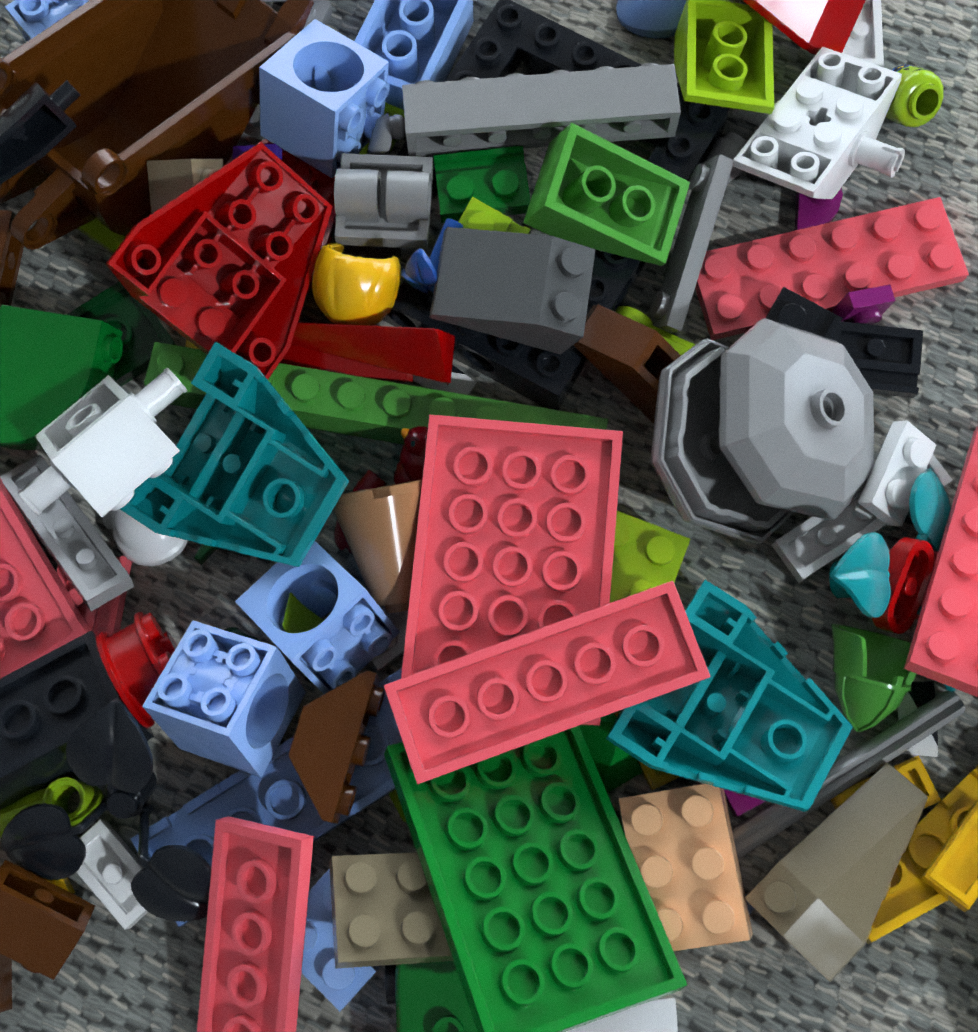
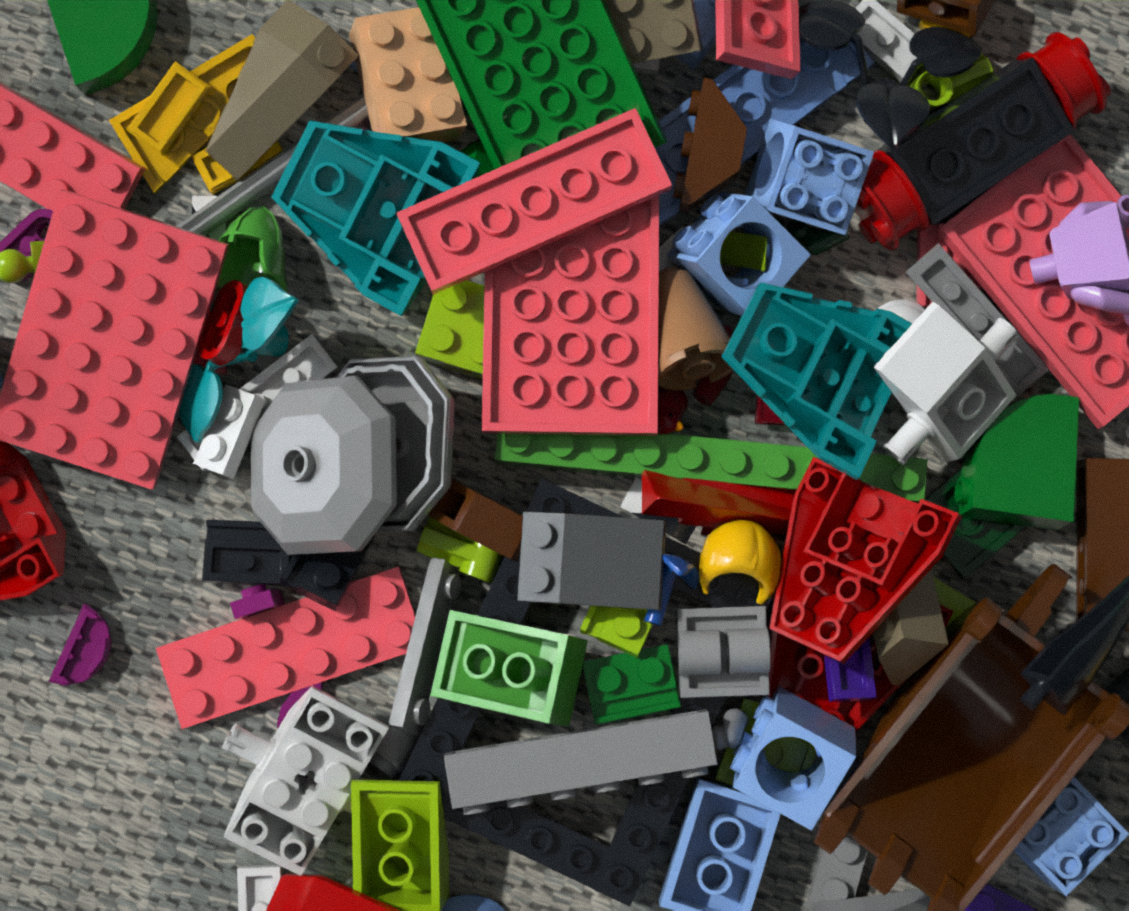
camera: 175 degrees right, 10 degrees up
(916, 97) = (204, 831): lime head -> none

